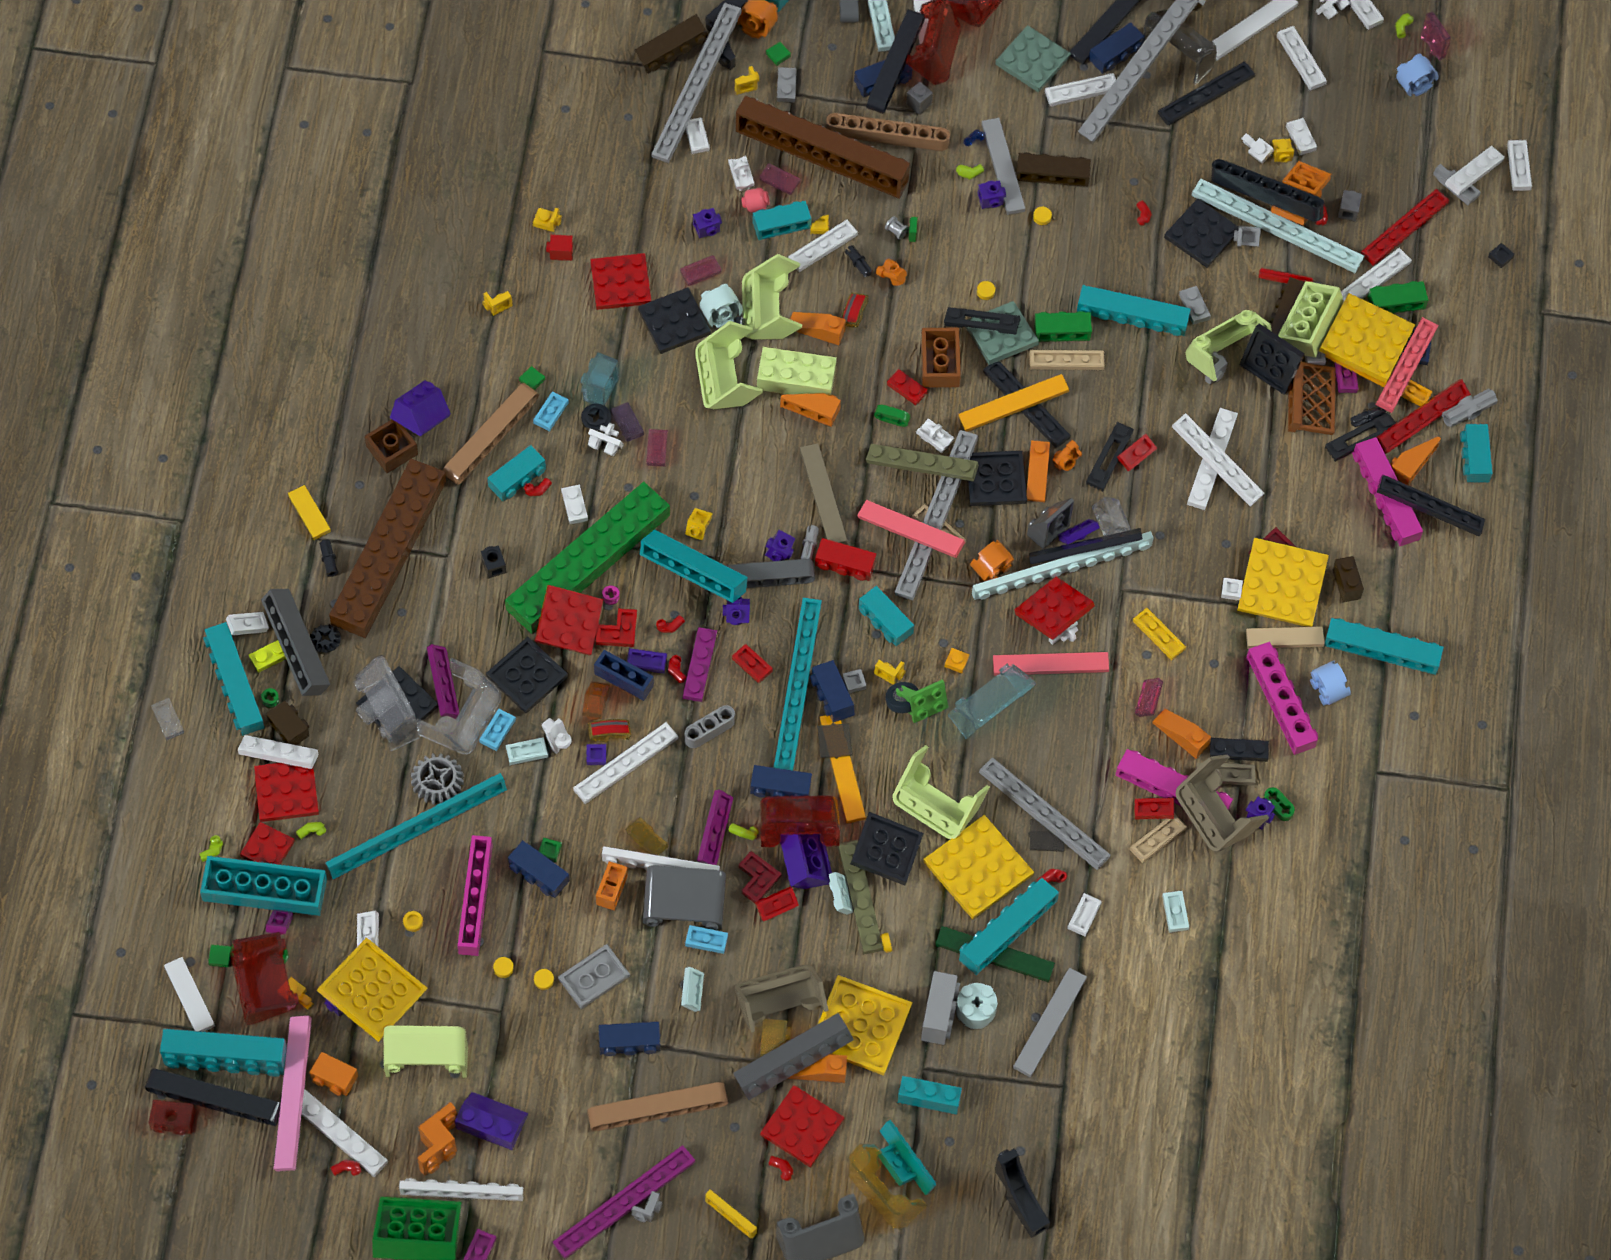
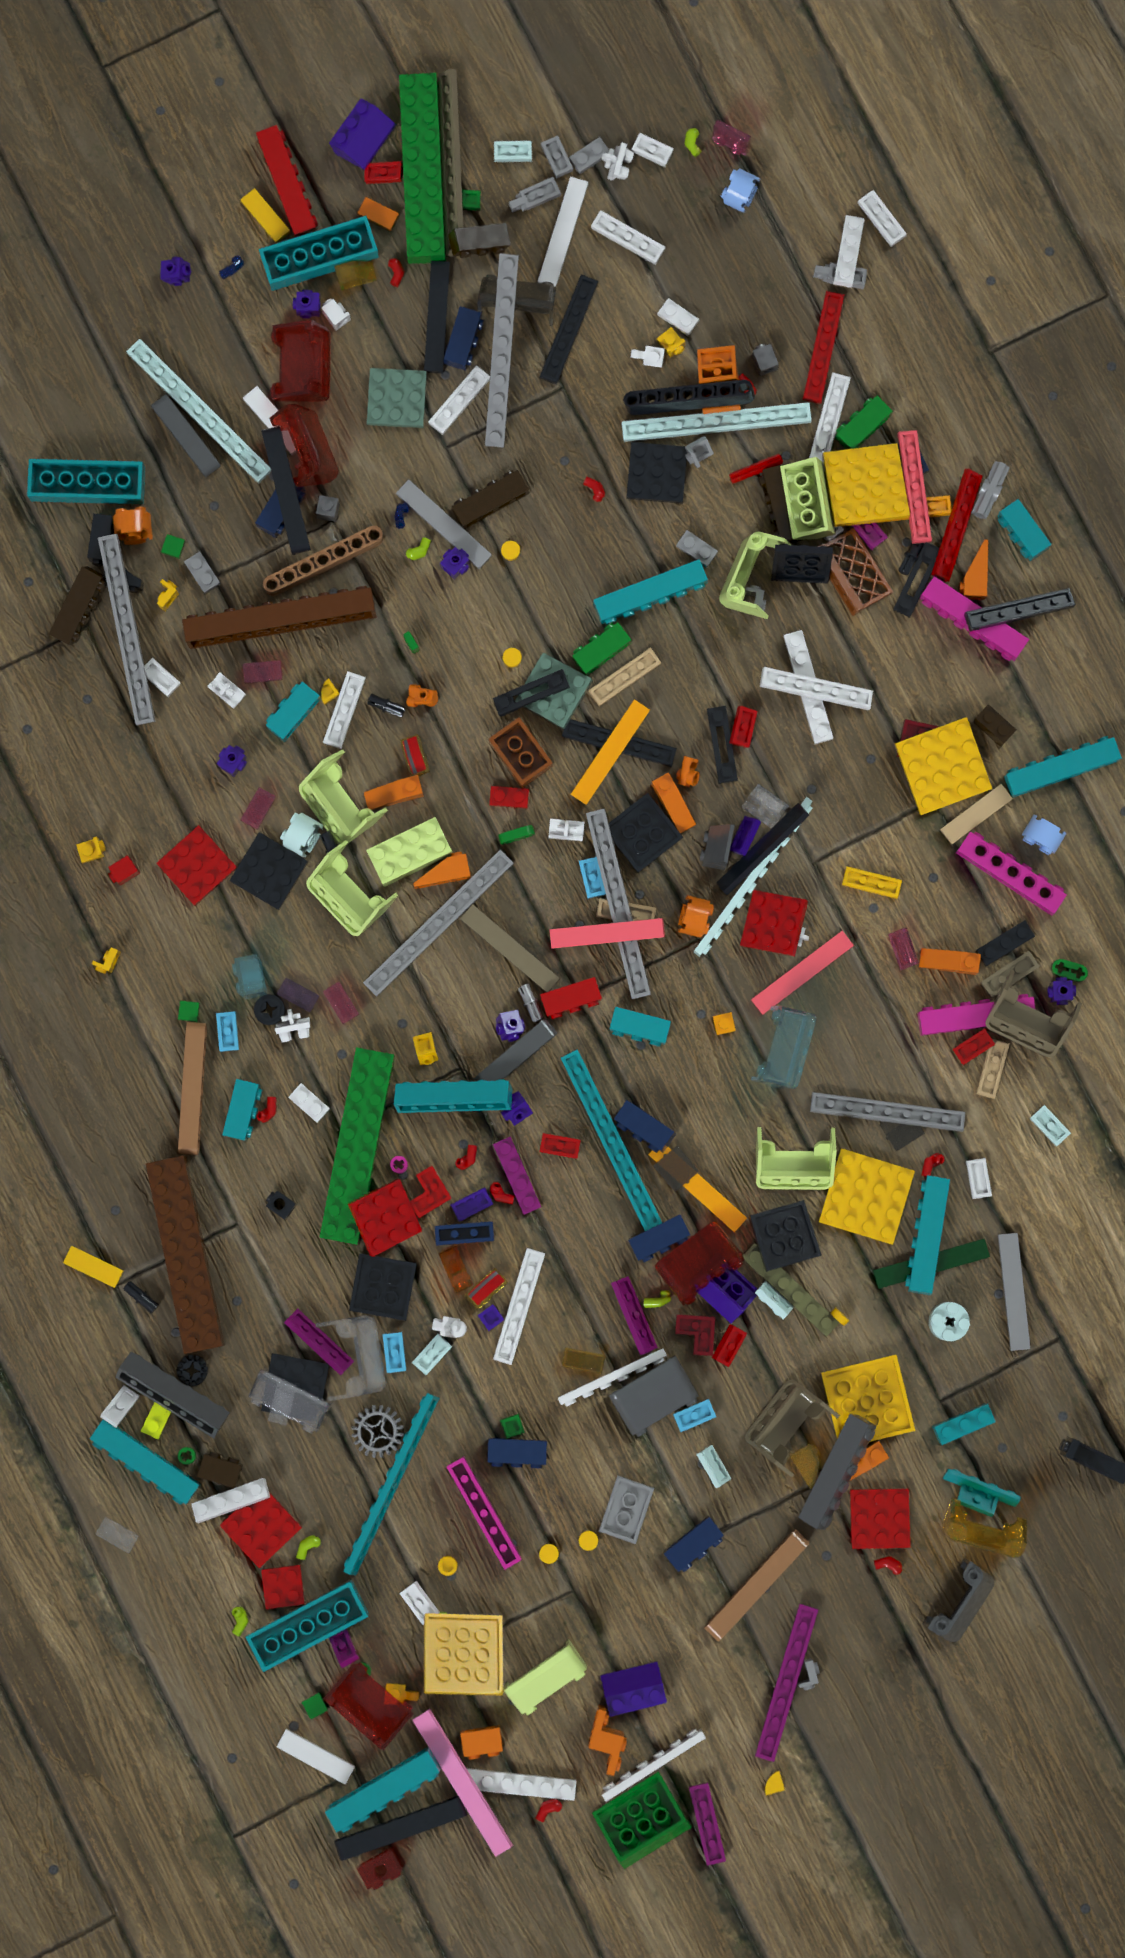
camera: 30 degrees left, 20 degrees up
(391, 445) = (118, 1160): reddish brown brick -> none
(420, 408) = (120, 1112): dark purple slope -> none
(611, 885) = (587, 1426): orange brick -> none
(705, 734) = (566, 1218): light grey beam -> none
(730, 1214) = (877, 1633): yellow tile -> none
(755, 200) = (257, 707): coral head -> none
(779, 439) = (438, 923): none -> light grey plate
(854, 681) = (654, 1103): light grey plate -> none
(888, 672) = (675, 1076): yellow bracket -> none
(896, 227) = (396, 650): light grey bush -> none
(921, 703) = (707, 1091): bright green plate -> none
(922, 462) = (574, 864): olive plate -> none
(927, 488) = (592, 877): none -> medium azure plate
(940, 1008) = (923, 1346): light grey brick -> none
(1231, 589) = (905, 800): white plate -> none
(1501, 255) = (923, 320): black plate -> none

